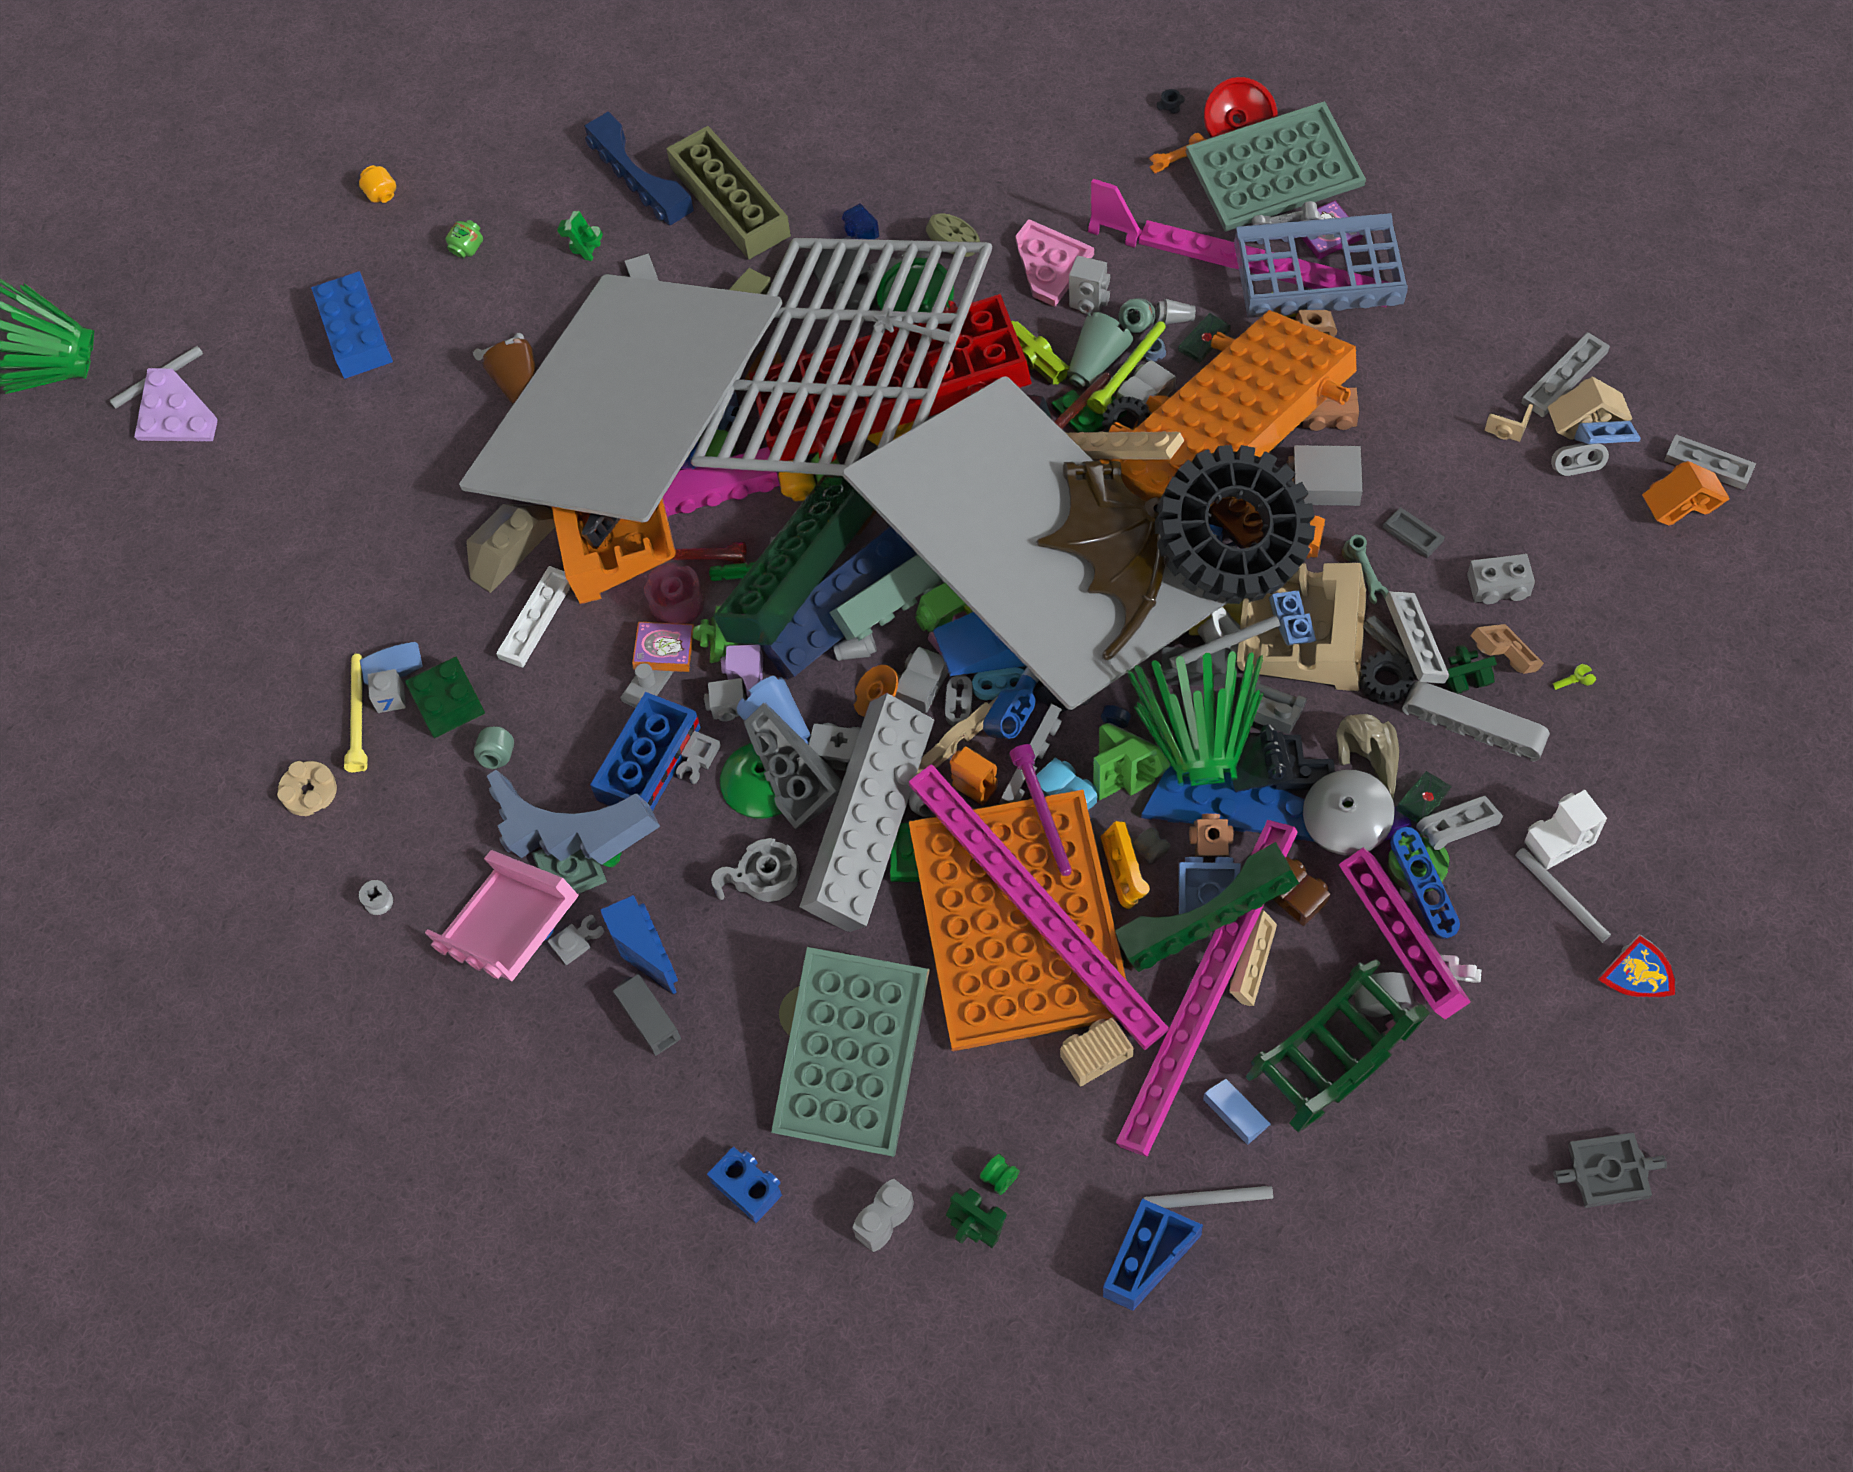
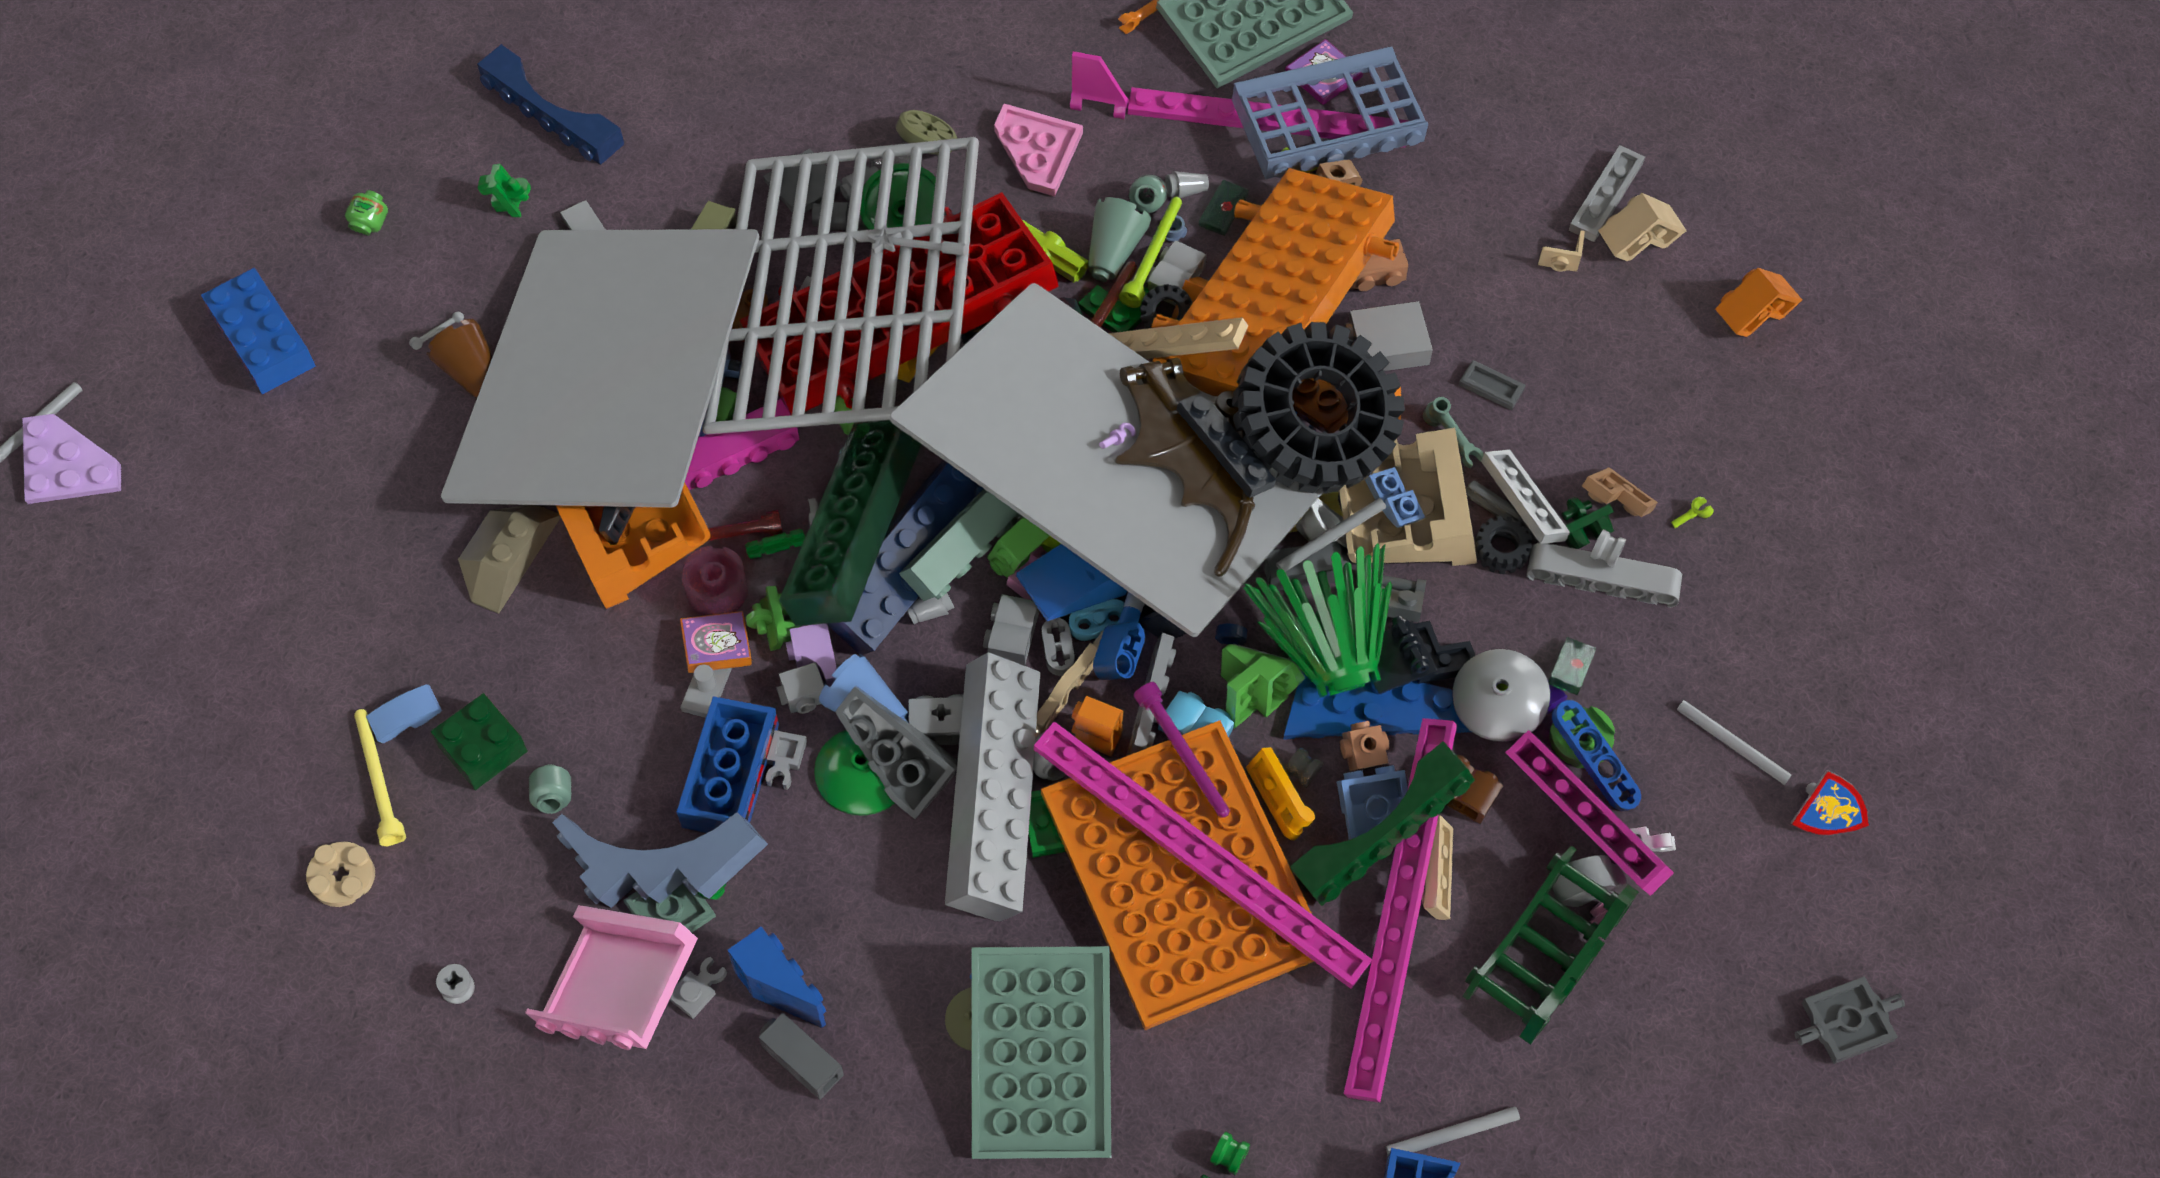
camera: 20 degrees left, 0 degrees up
(377, 184) = (246, 163): light orange head -> none
(386, 691) = (408, 746): light grey brick -> none
(534, 617) = (559, 632): white plate -> none
(728, 192) = (662, 118): olive brick -> none
(751, 873) = (878, 878): light grey piece -> none
(796, 484) = (821, 437): light orange head -> none
(860, 223) = (819, 133): clear blue brick -> none
(874, 684) = (963, 645): orange dish -> none
(1045, 520) = (1117, 436): none -> lavender hand
(1088, 285) = (1089, 168): light grey brick -> none
(1096, 1050) = (1299, 999): tan brick -> none
(1142, 544) = (1226, 444): none -> black plate
(1236, 1111) = (1459, 1035): medium blue slope -> none
(1308, 212) = (1302, 58): light grey brick -> none
(1373, 741) = (1505, 614): dark tan hair -> none
(1459, 821) = (1615, 684): light grey plate -> none
(1480, 696) = (1608, 548): none -> light grey wheel
(1501, 578) = (1594, 420): light grey brick -> none
(1570, 830) = (1725, 675): white brick -> none
(1578, 458) = (1641, 282): light grey plate -> none
(1606, 432) = (1664, 249): medium blue slope -> none
(1726, 466) = (1793, 267): light grey plate -> none

